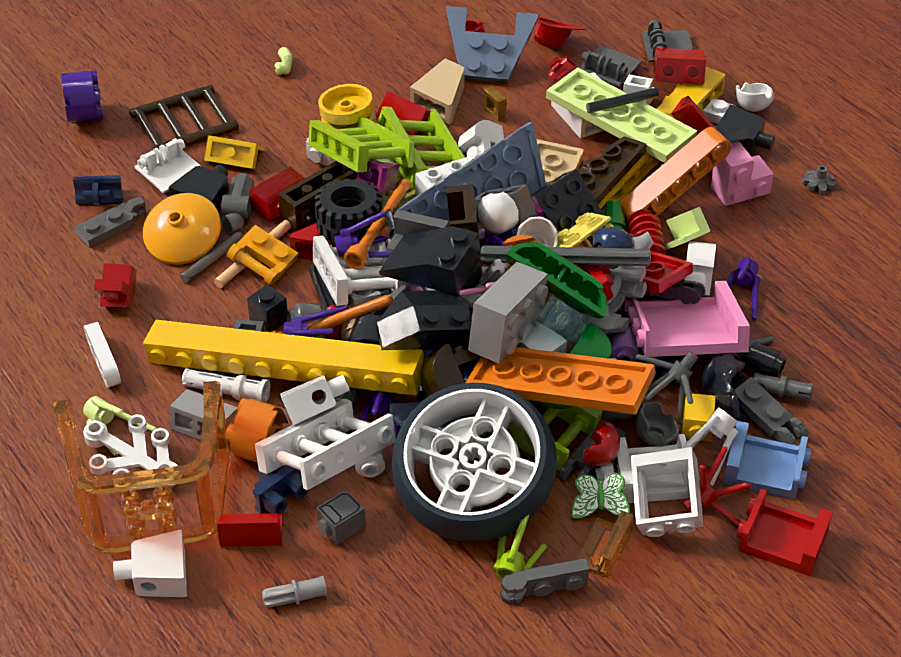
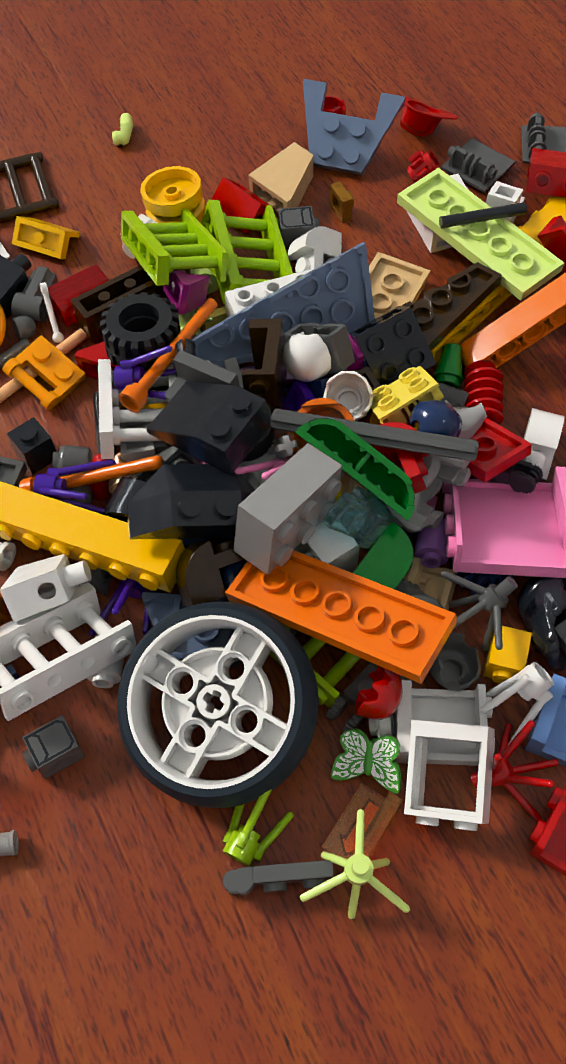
camera: 10 degrees right, 15 degrees up
(250, 190) = (57, 336): none -> white hinge
(459, 121) = (295, 223): none -> dark grey brick
(607, 558) = (357, 871): none -> yellowish green plant
(687, 227) = (533, 391): yellowish green panel -> none

